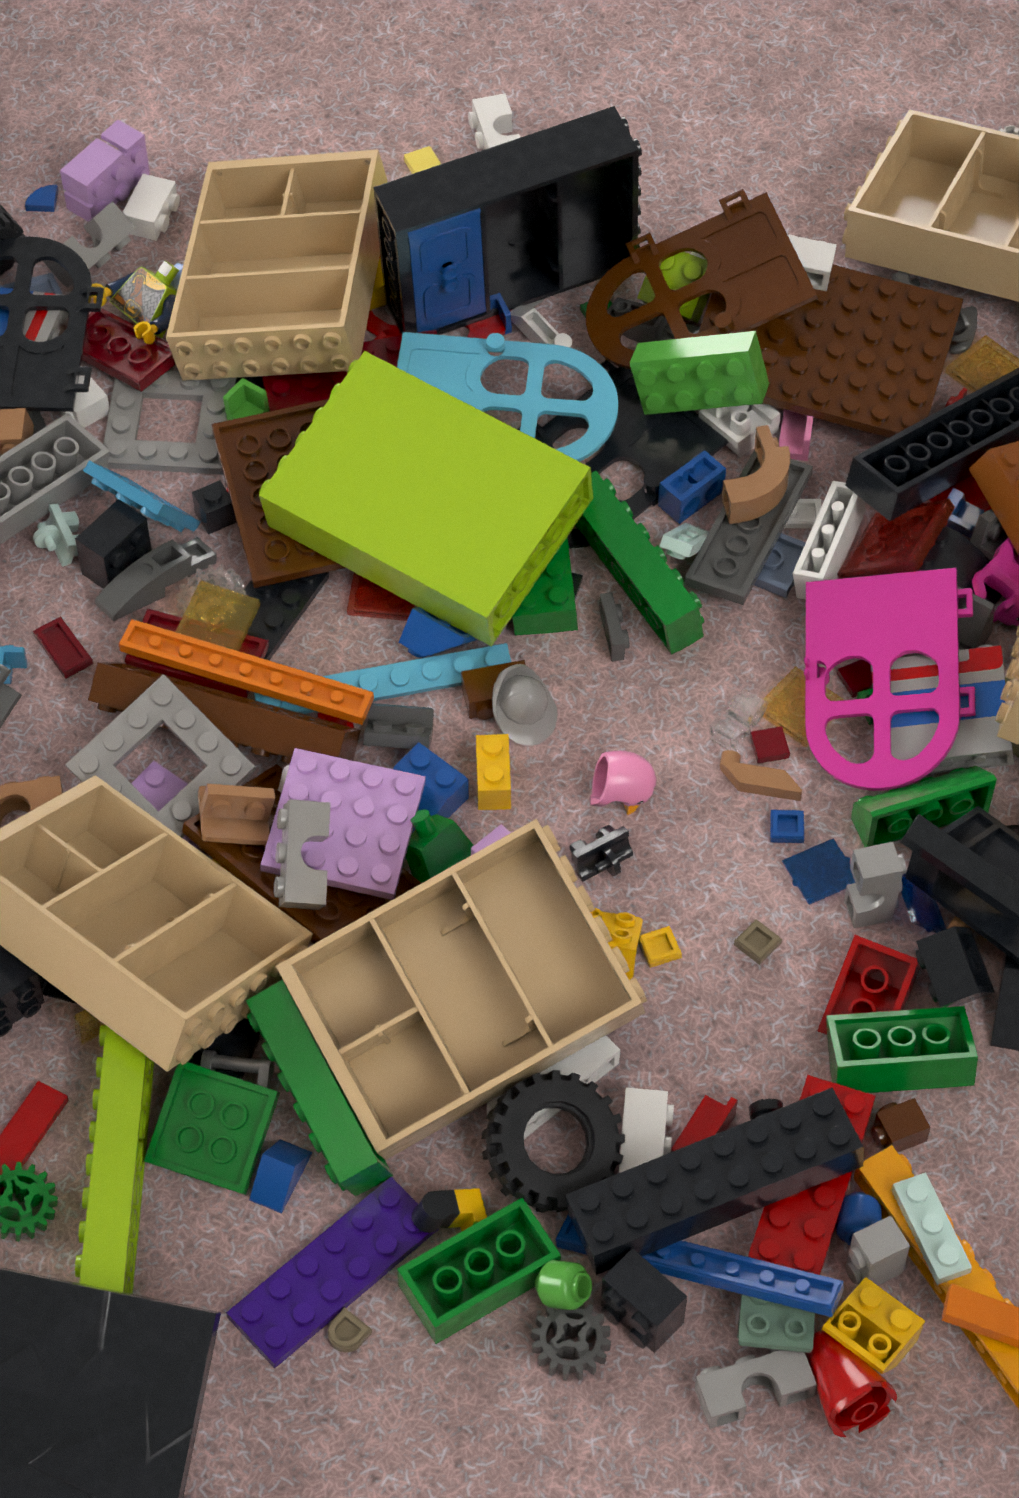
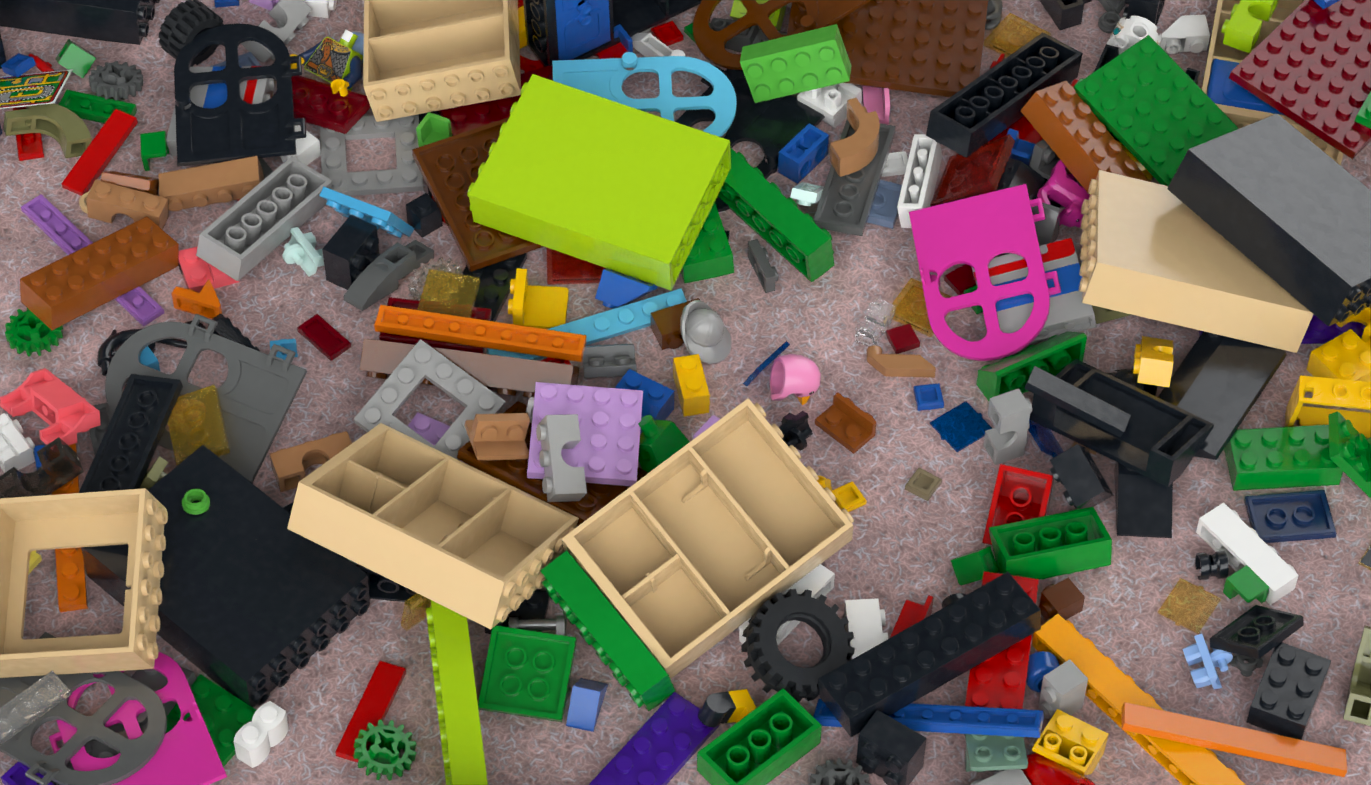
camera: 10 degrees left, 5 degrees down
(326, 640) = (537, 305): none -> yellow bracket
(558, 310) = (667, 33): none -> red tile
(563, 1285) = (827, 747): bright green head -> none
(591, 757) = (766, 363): none -> clear blue piece
(677, 849) = (847, 423): none -> dark orange bracket
(798, 1059) = (971, 565): none -> green panel
(931, 1228) = (1100, 667): light aqua plate -> none

